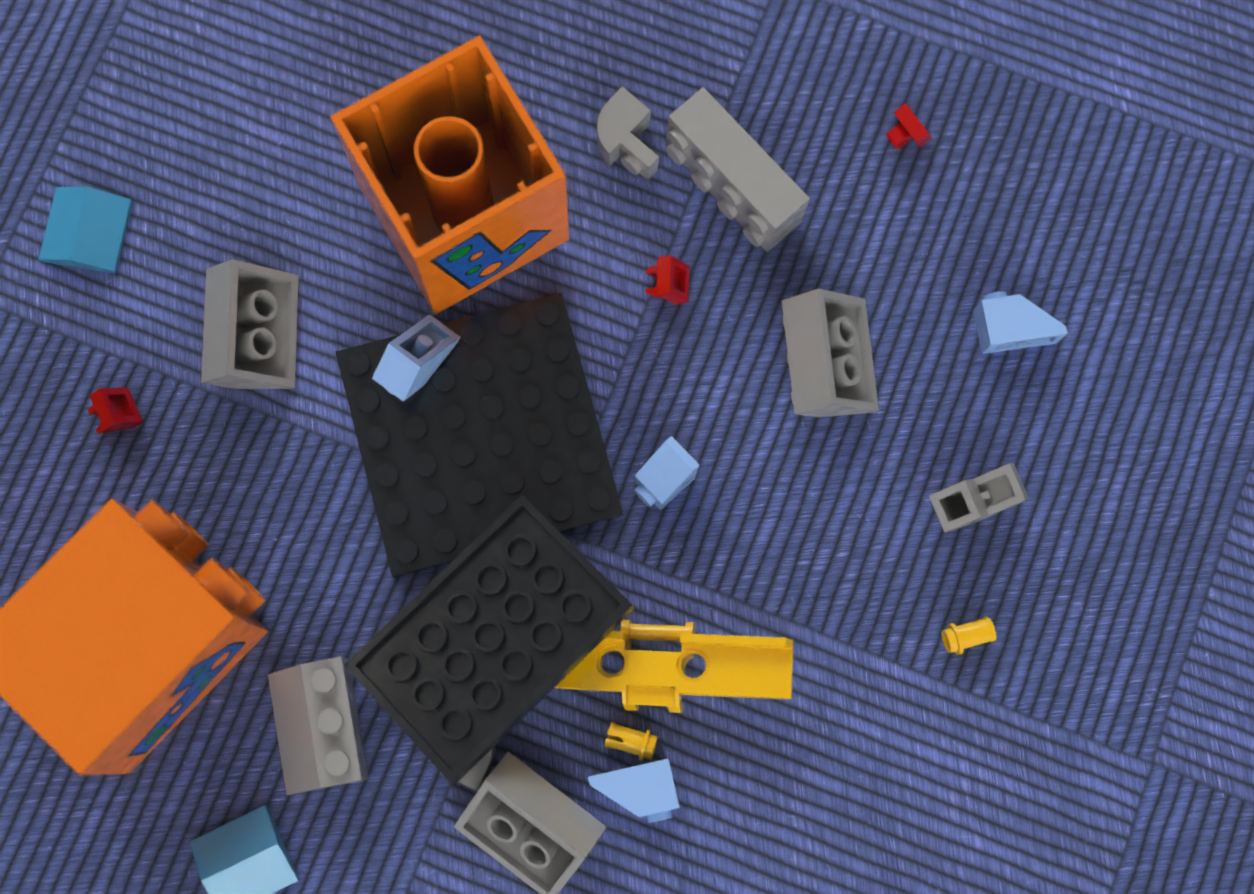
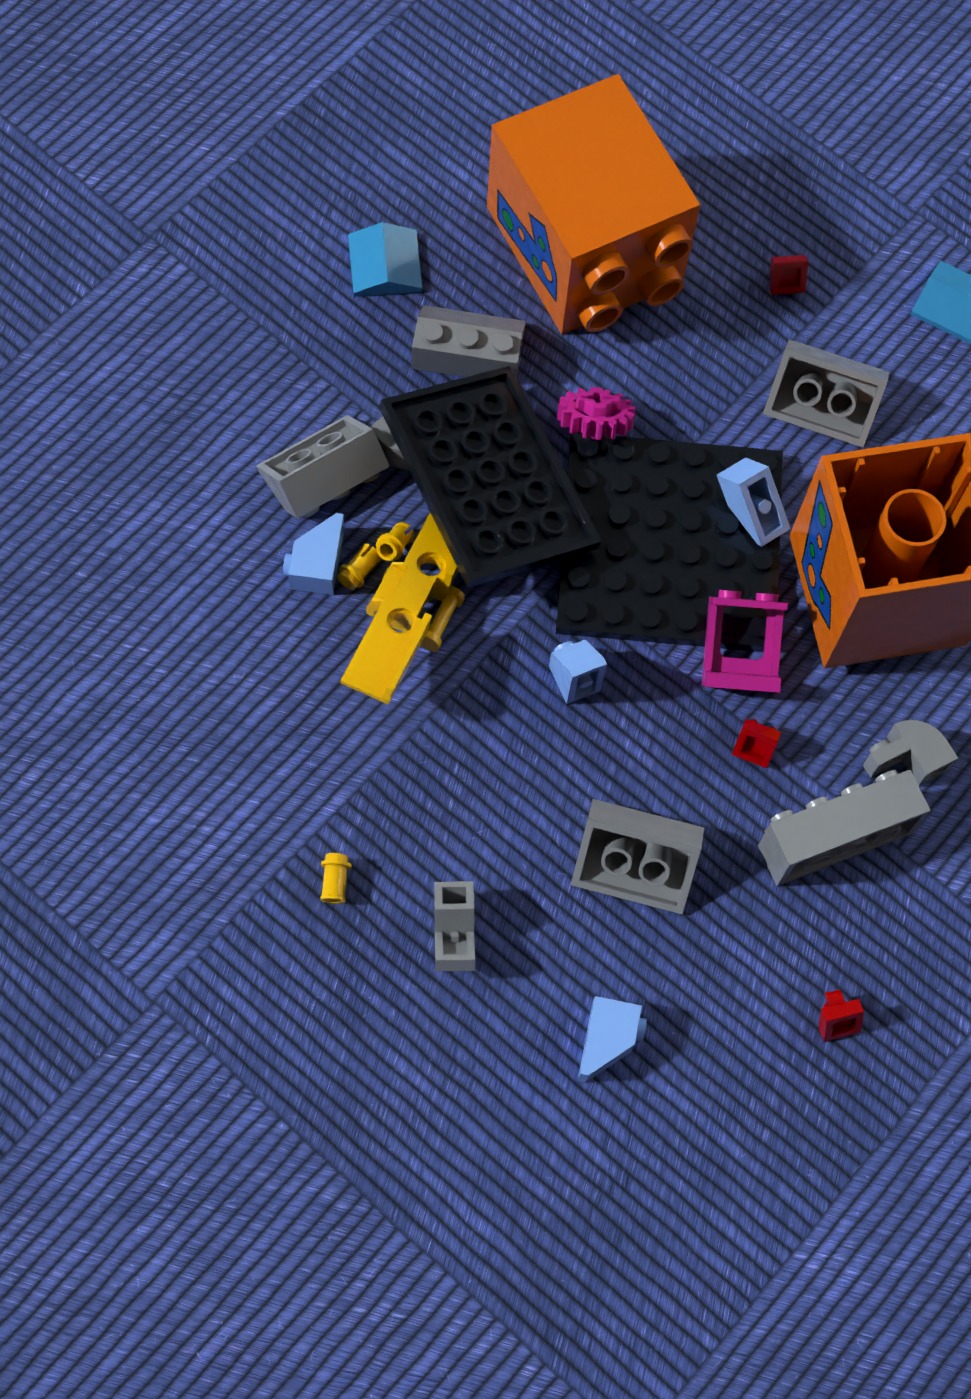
camera: 110 degrees right, 10 degrees down
(366, 554) = (596, 413): none -> dark pink gear
(598, 713) = (391, 545): none -> yellow pin
(604, 315) = (740, 672): none -> dark pink window

